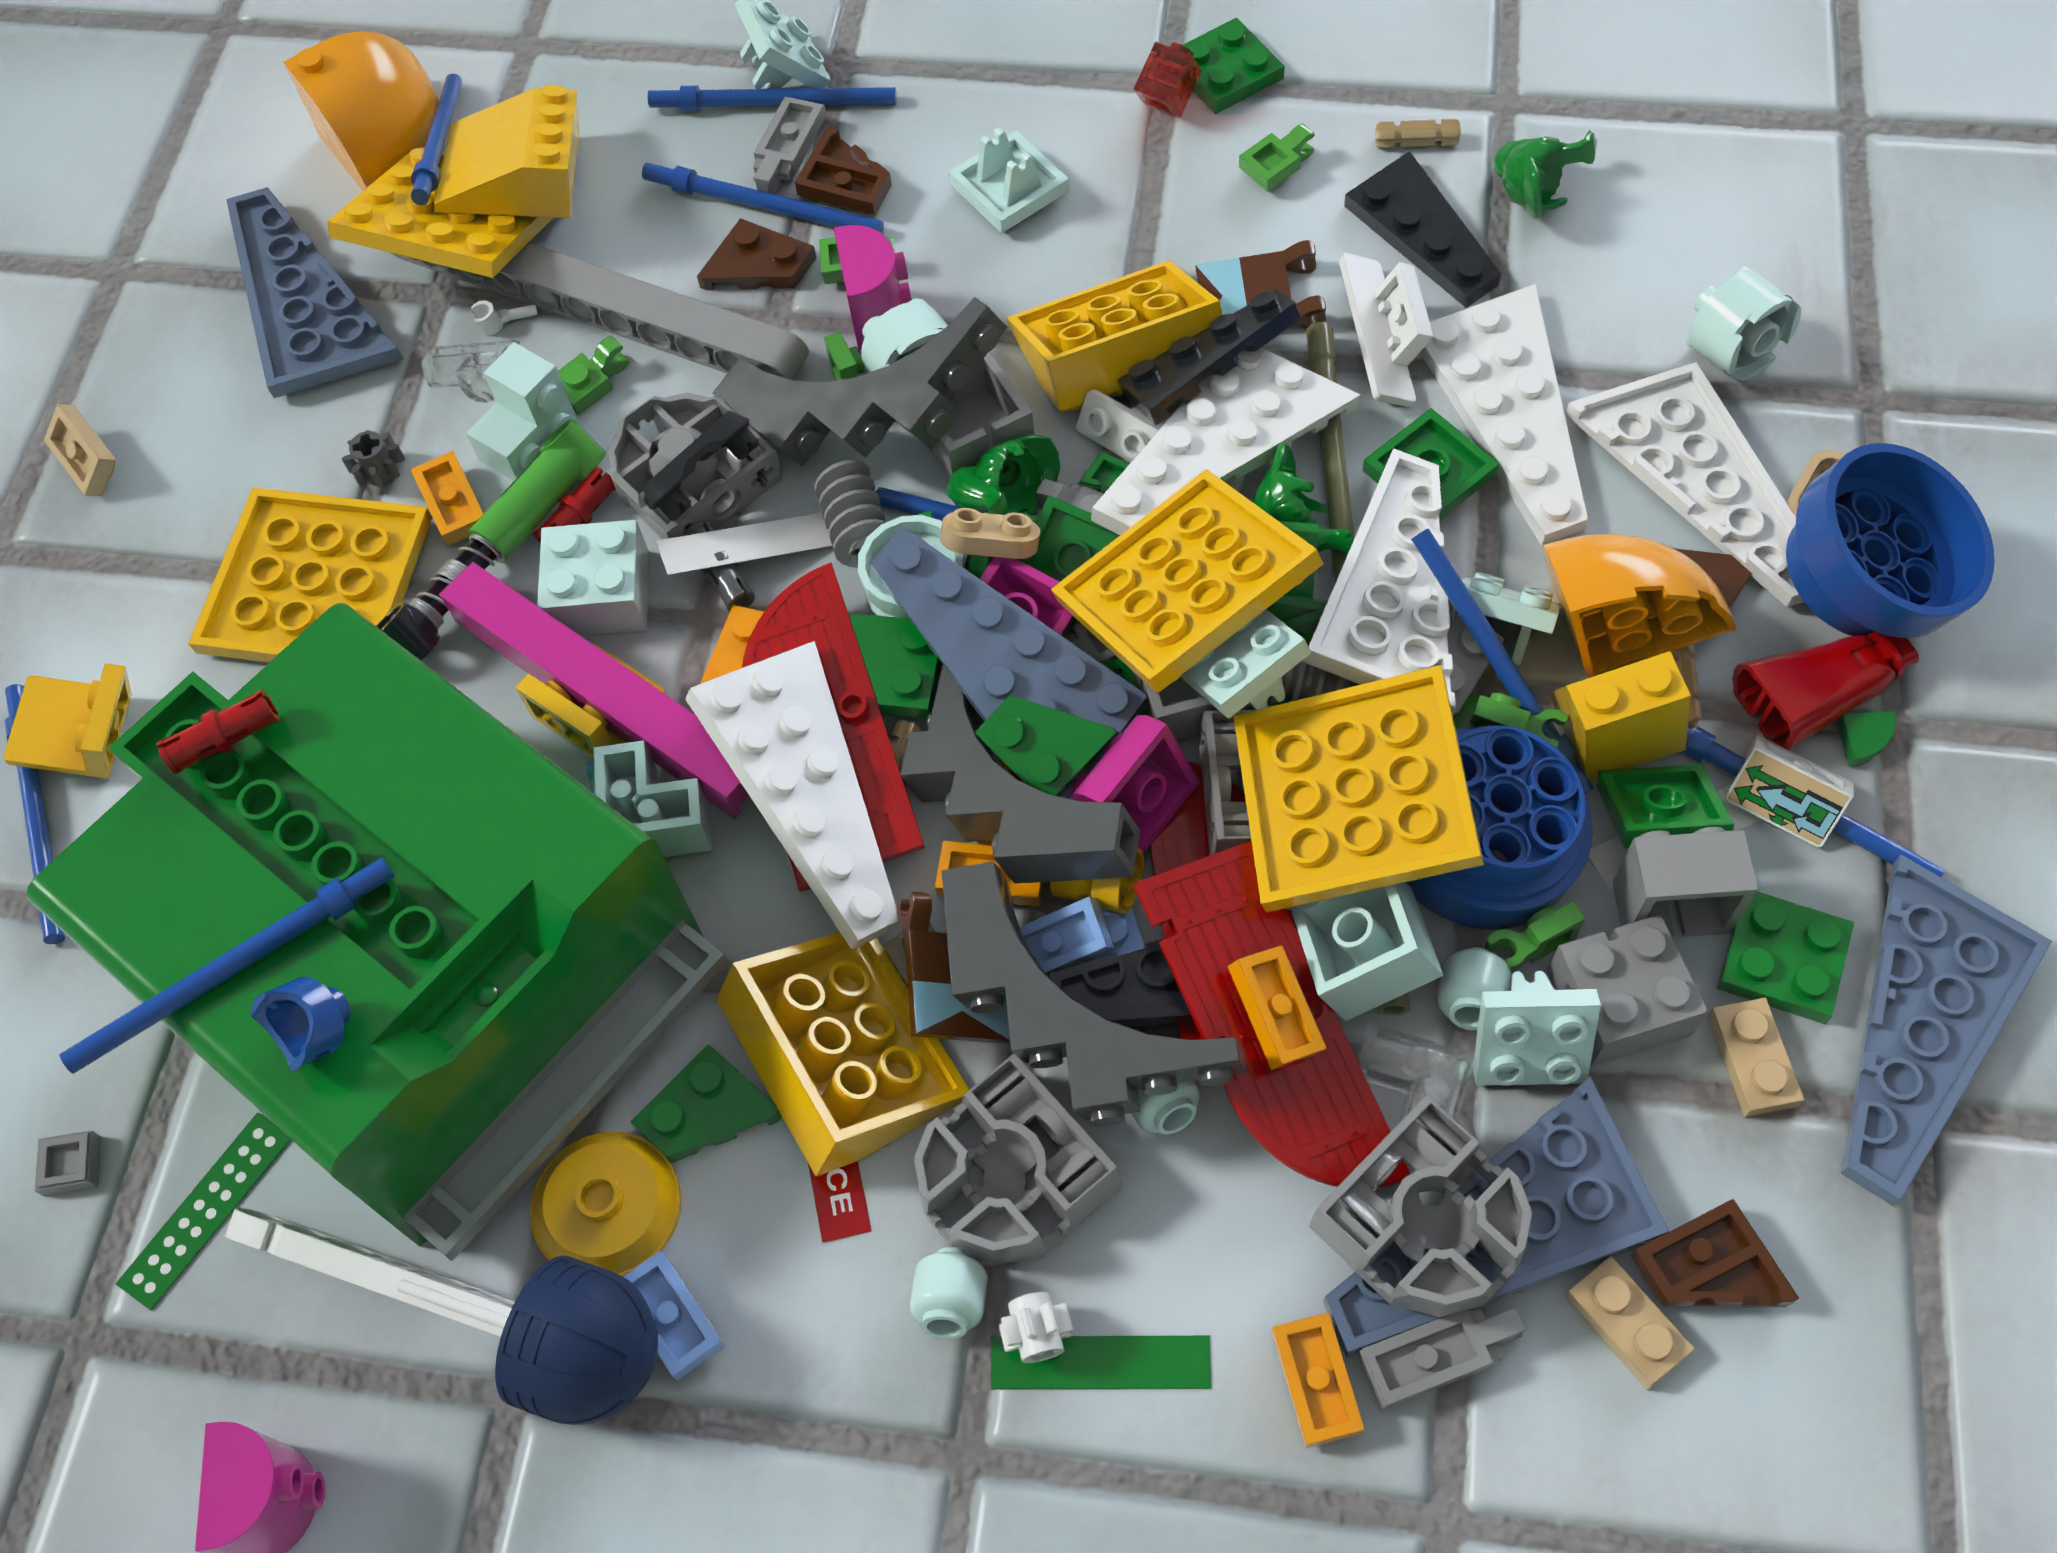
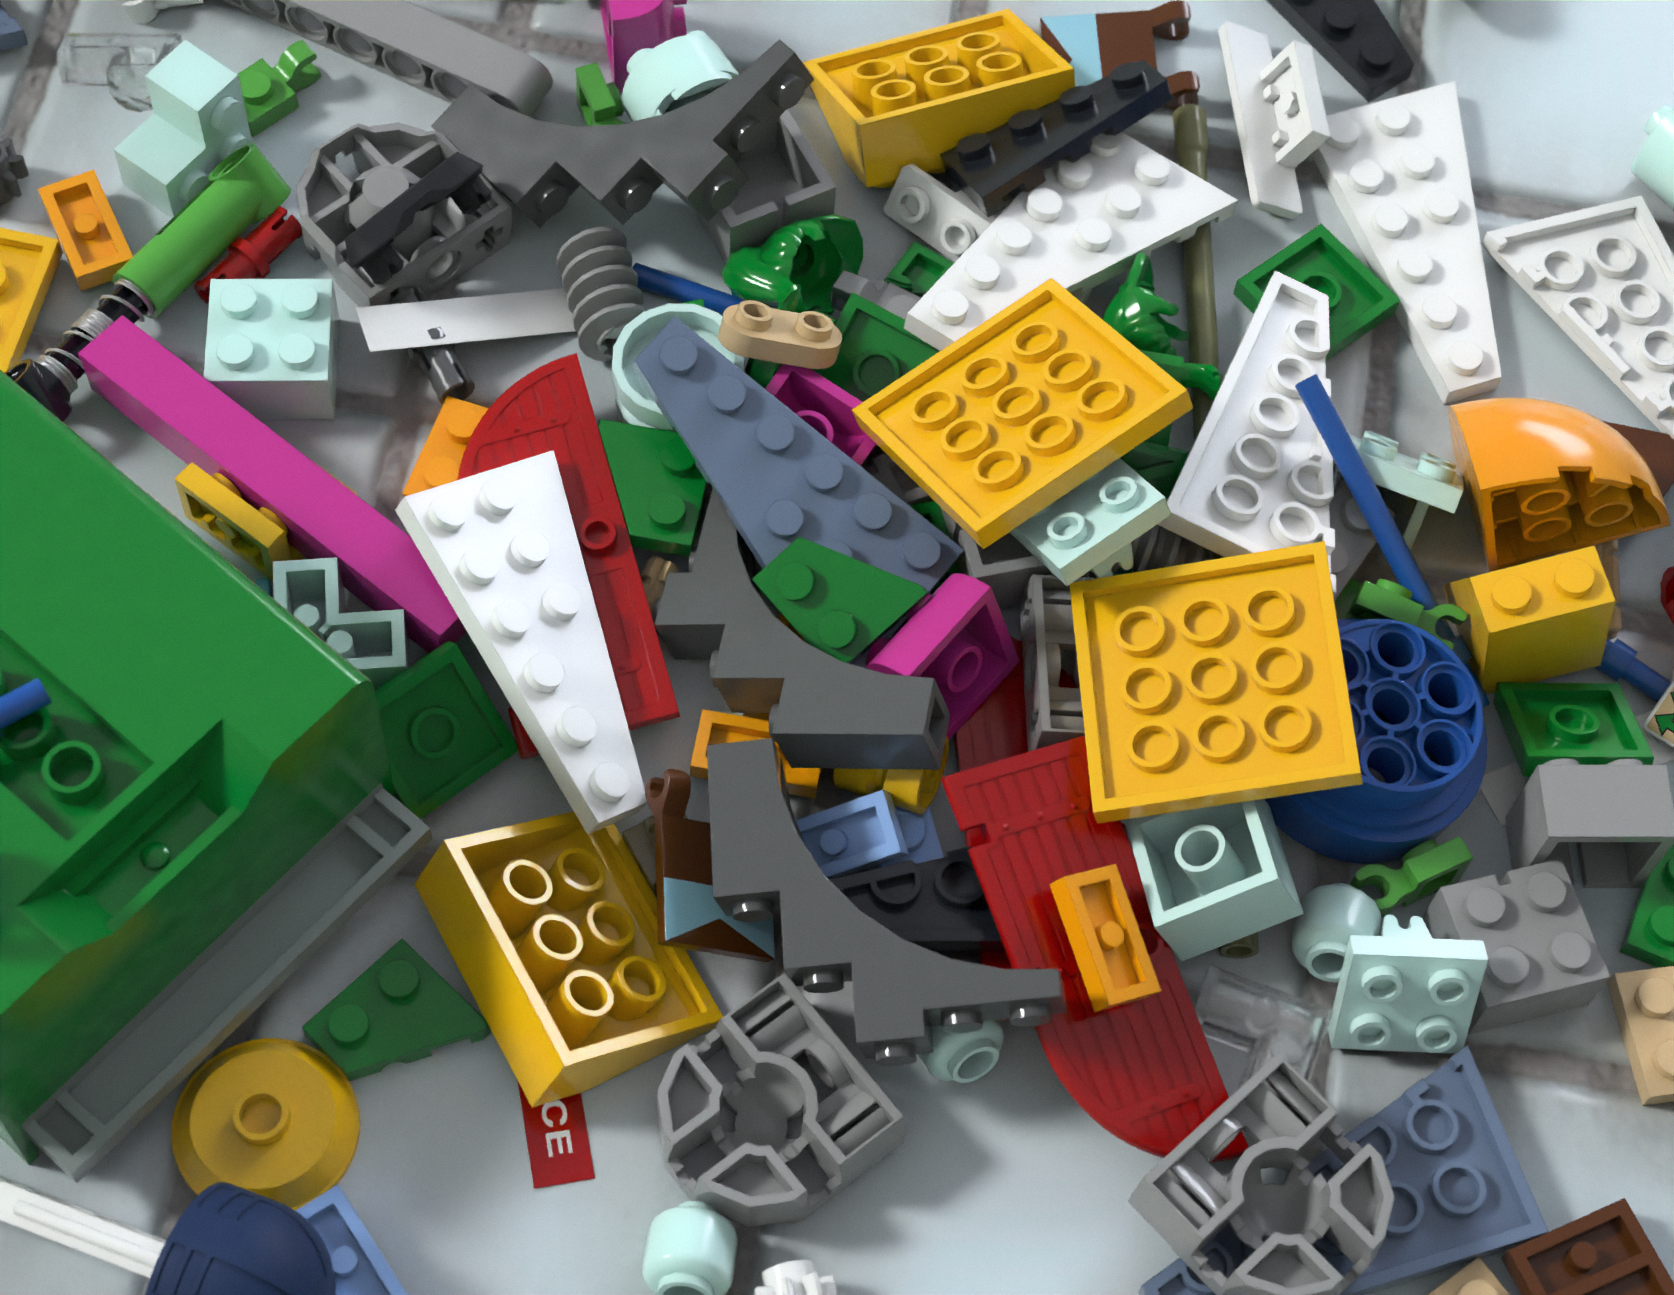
camera: 10 degrees left, 0 degrees up
(728, 873) = (439, 730): none -> green plate

